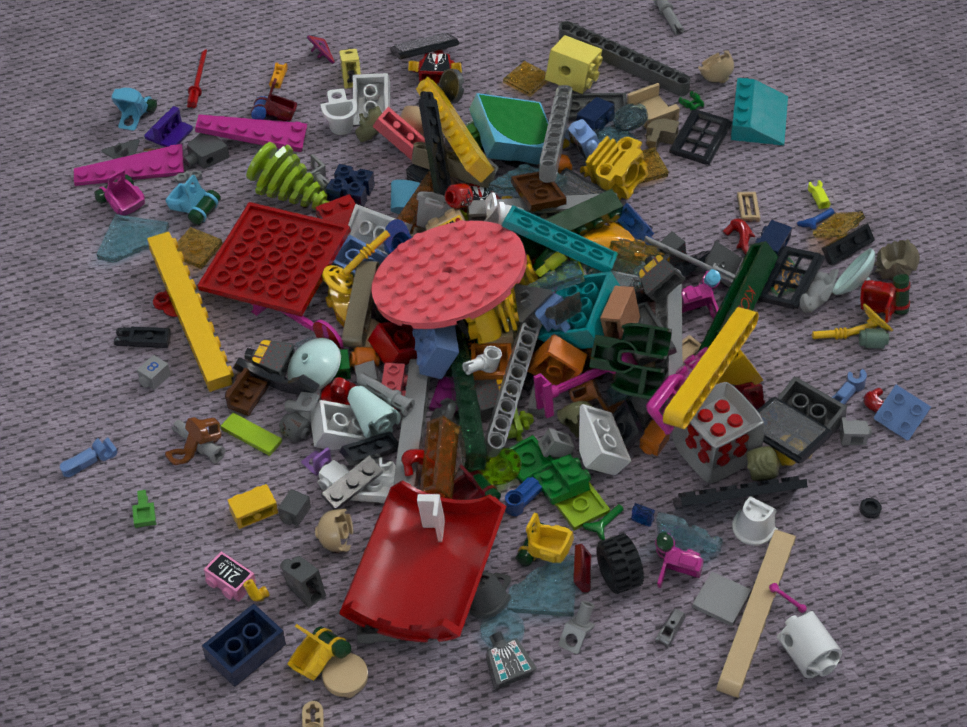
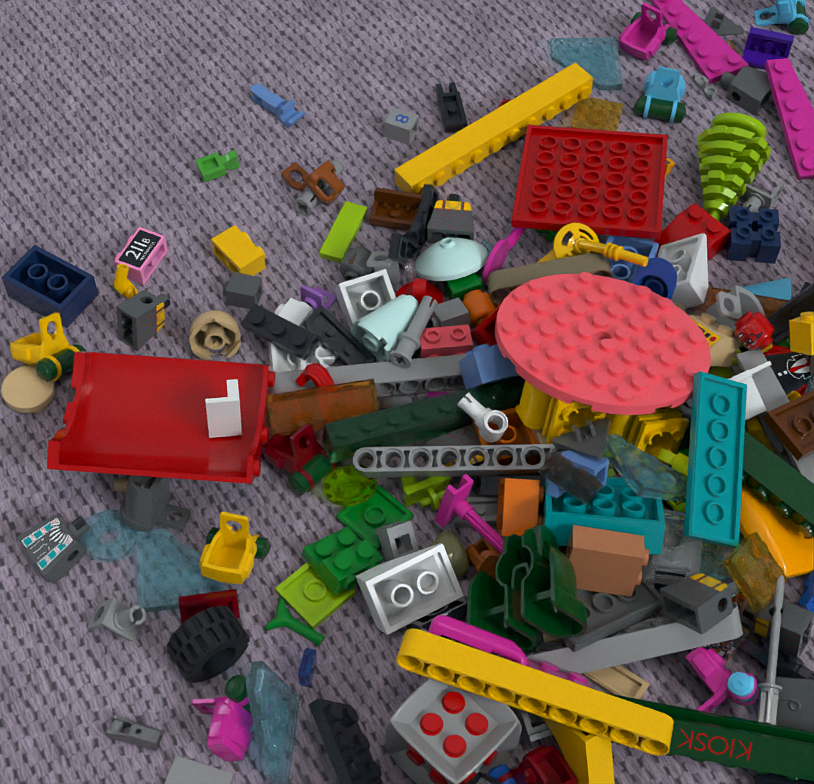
camera: 75 degrees right, 5 degrees up
(521, 496) = (310, 518): blue piece -> none

